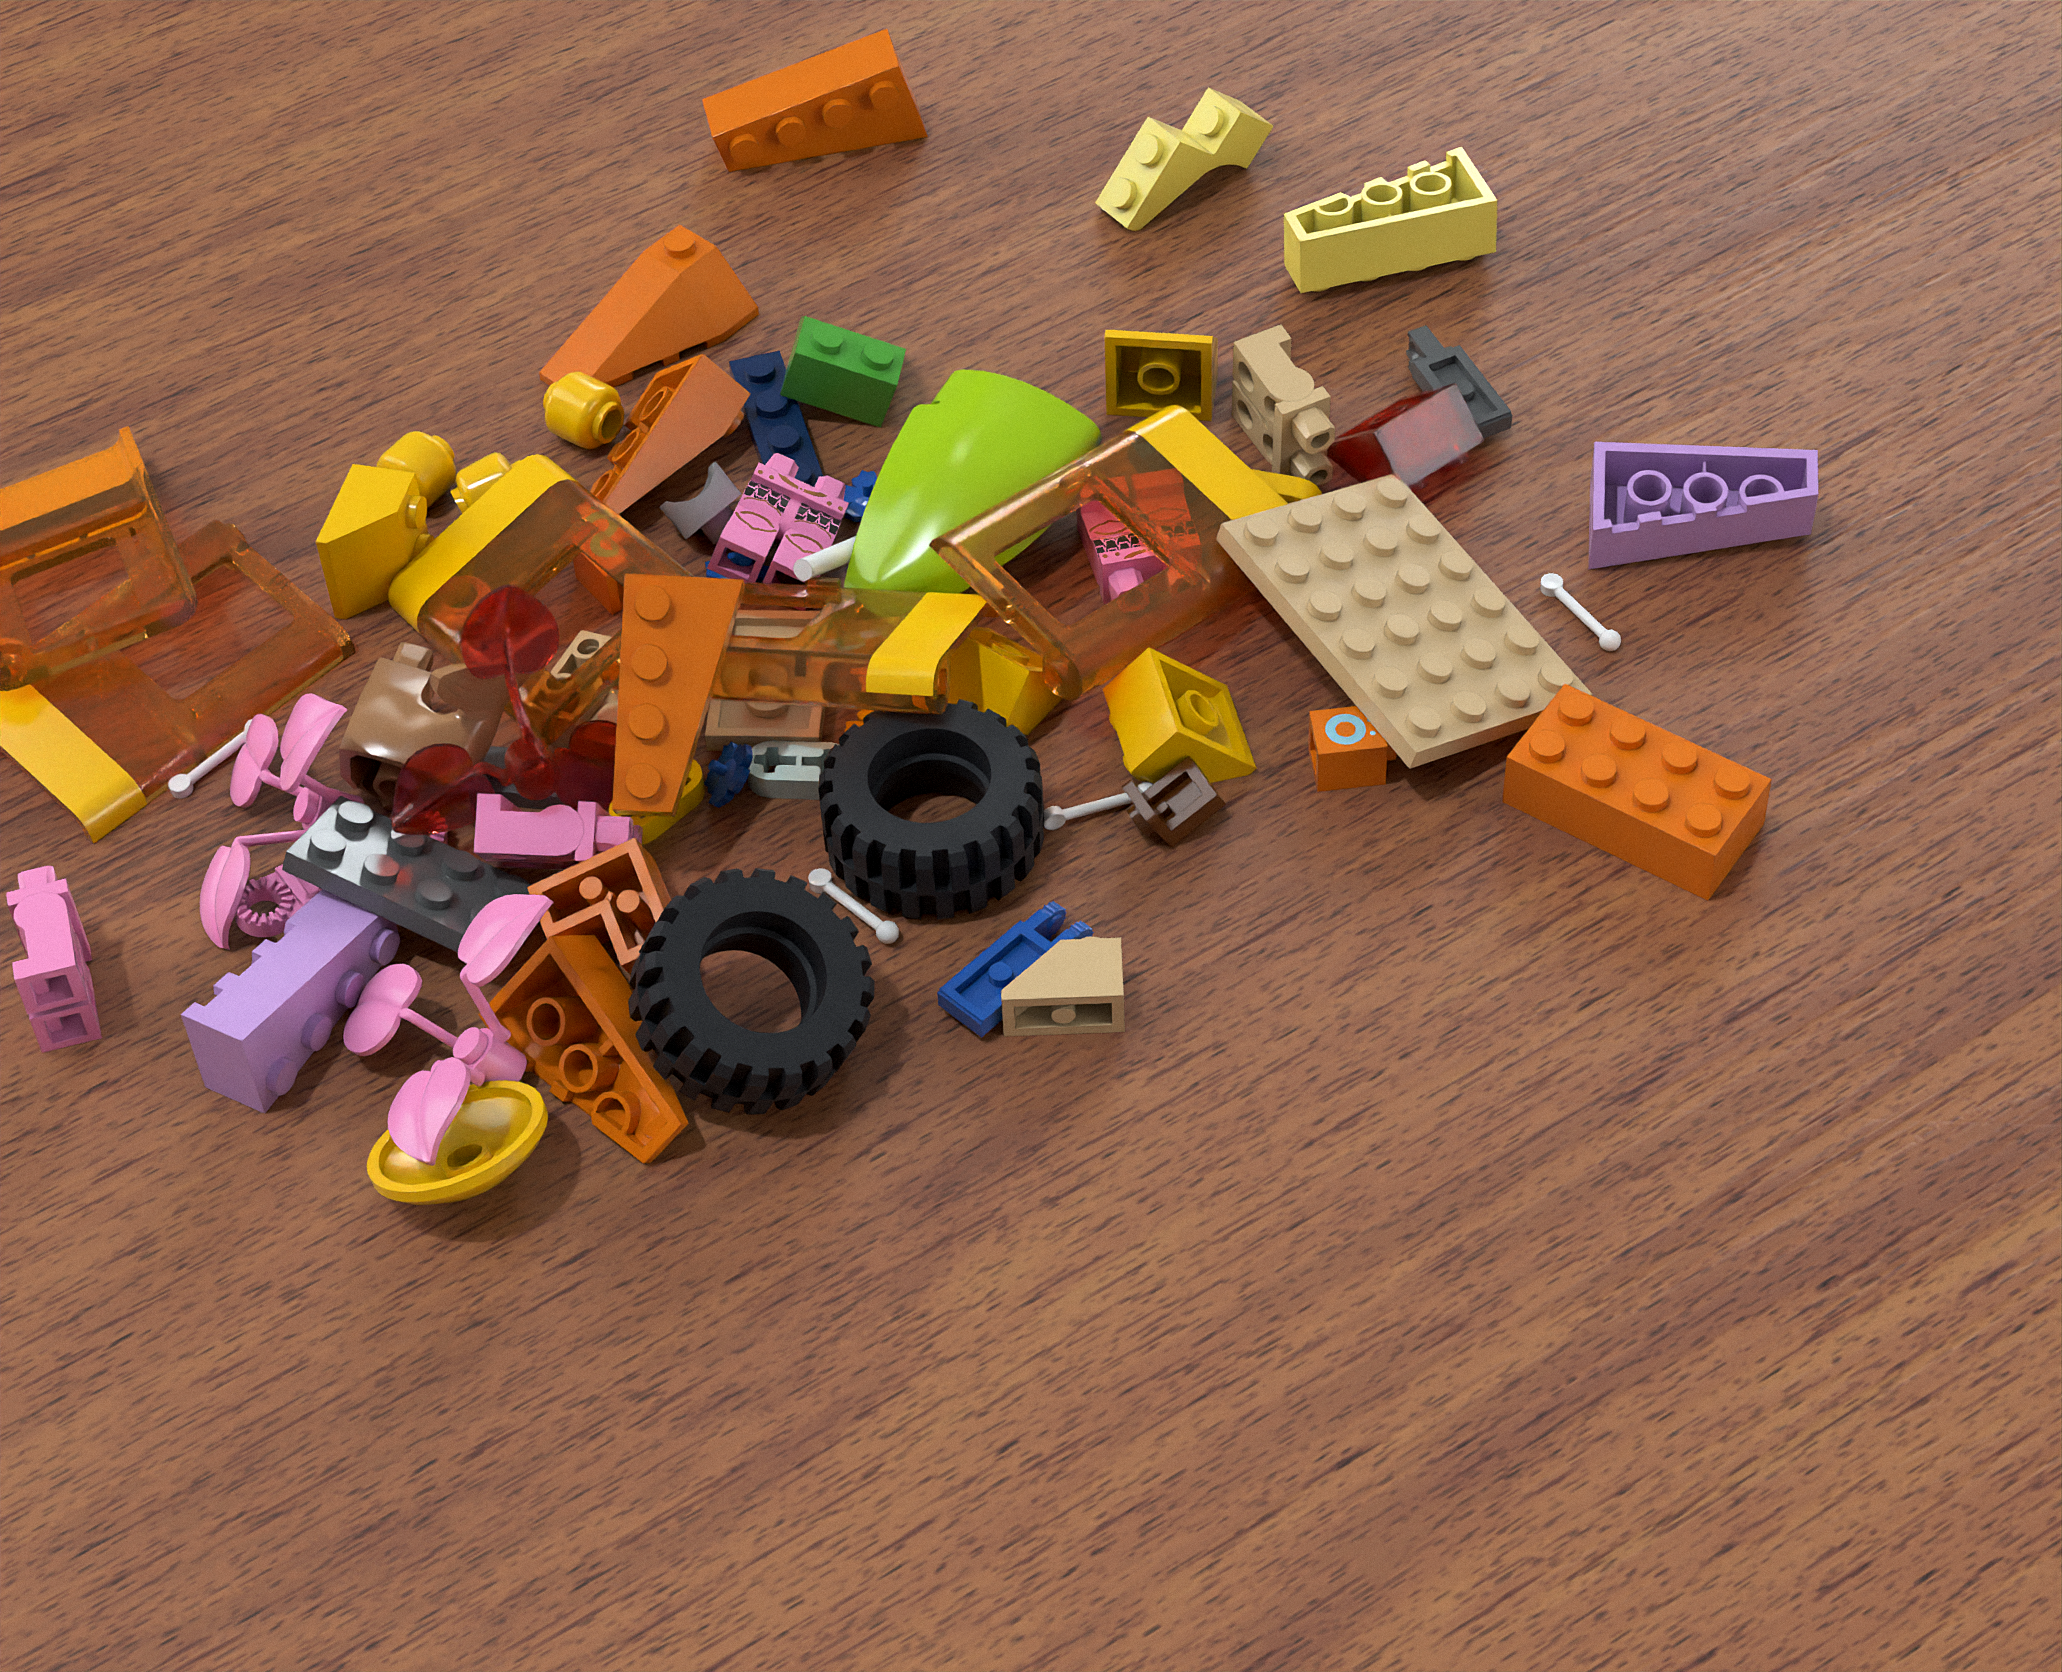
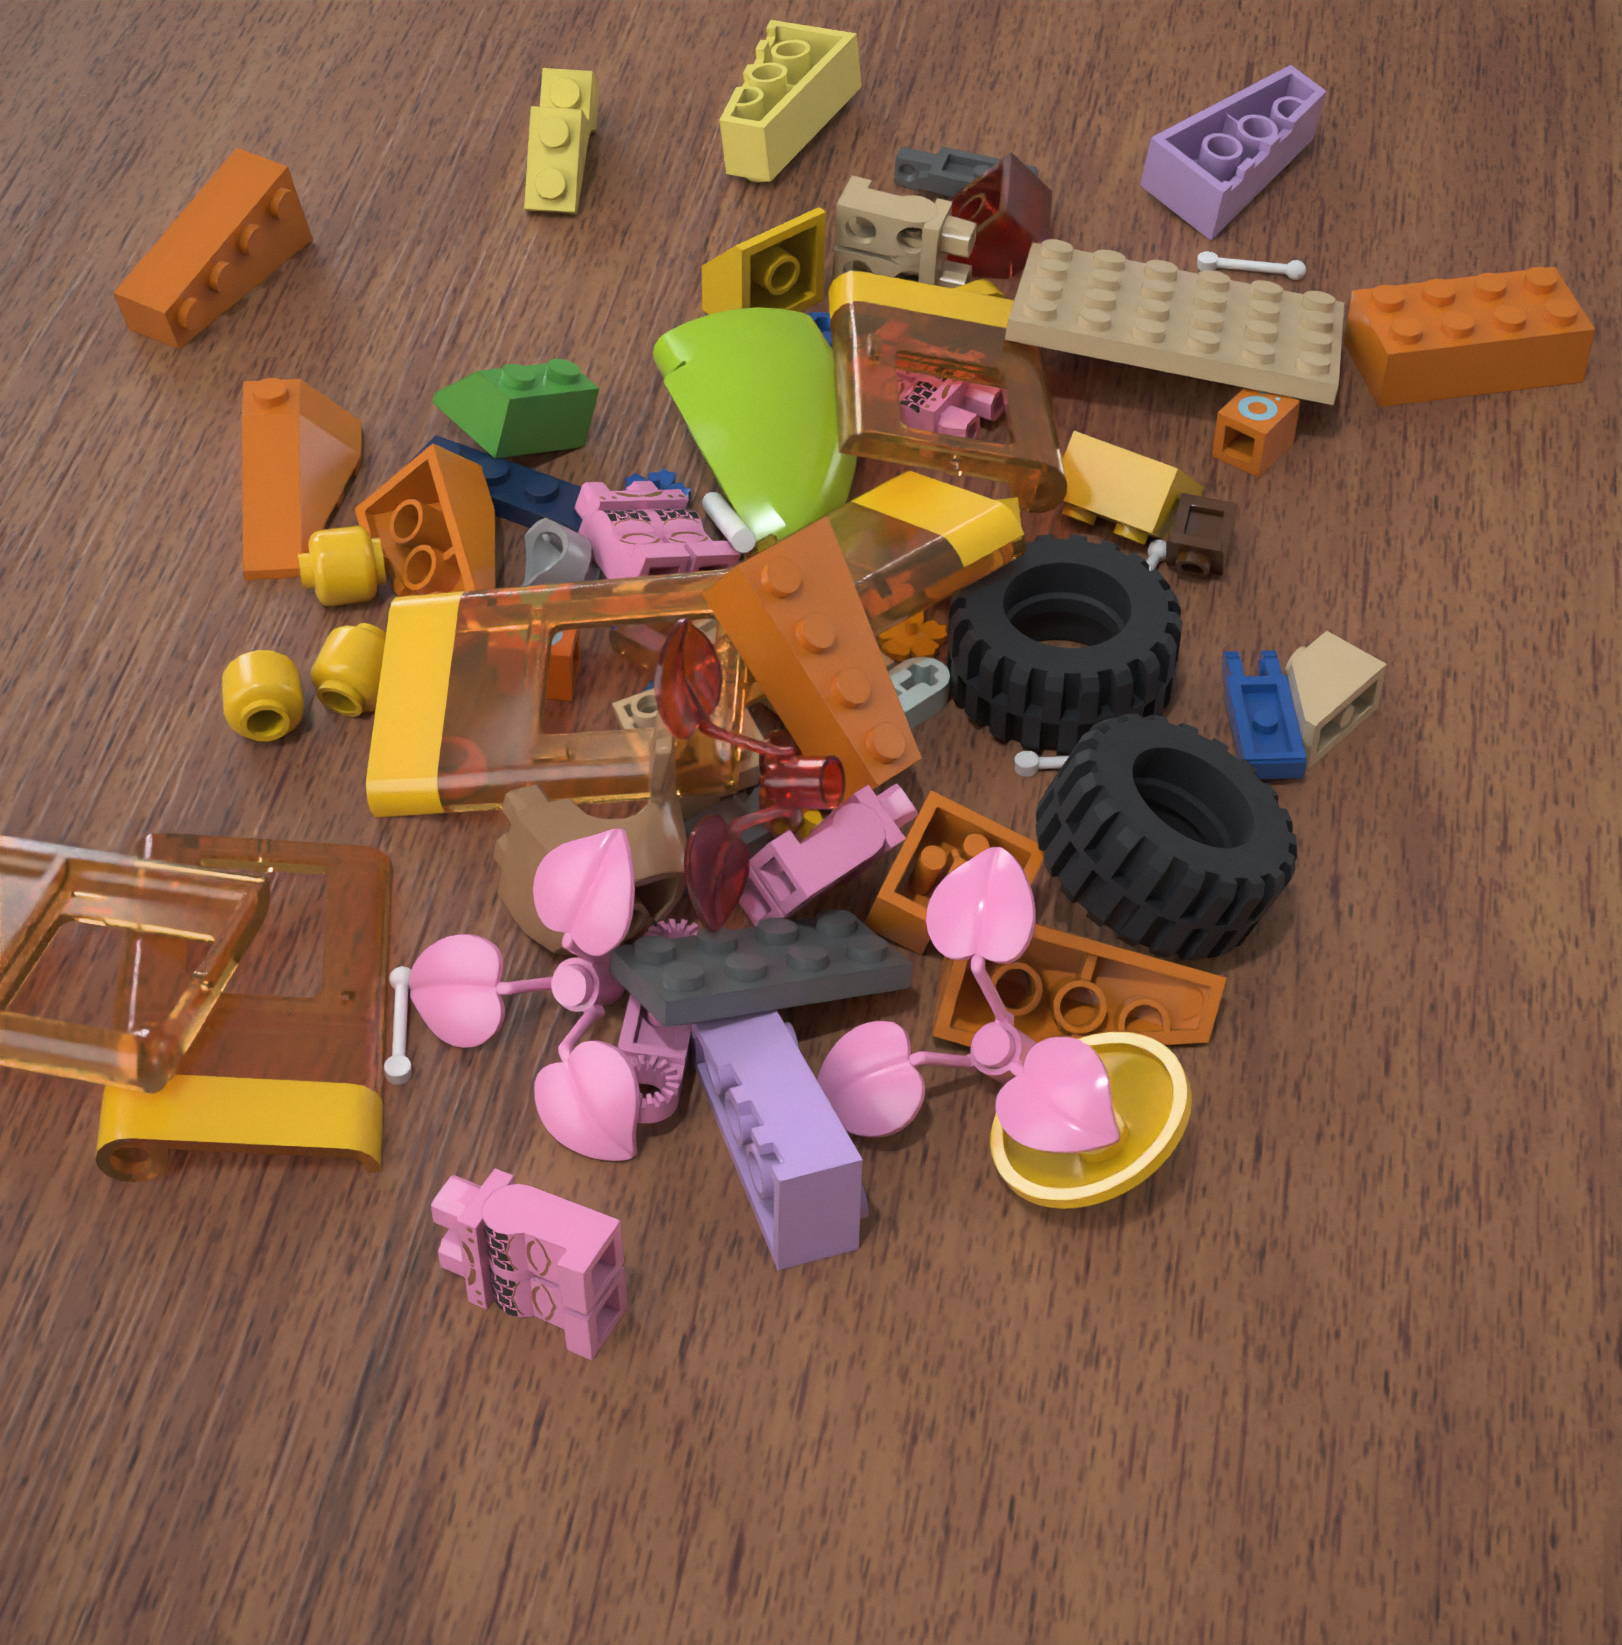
camera: 50 degrees left, 5 degrees down
(371, 536) = (320, 749): yellow slope -> none

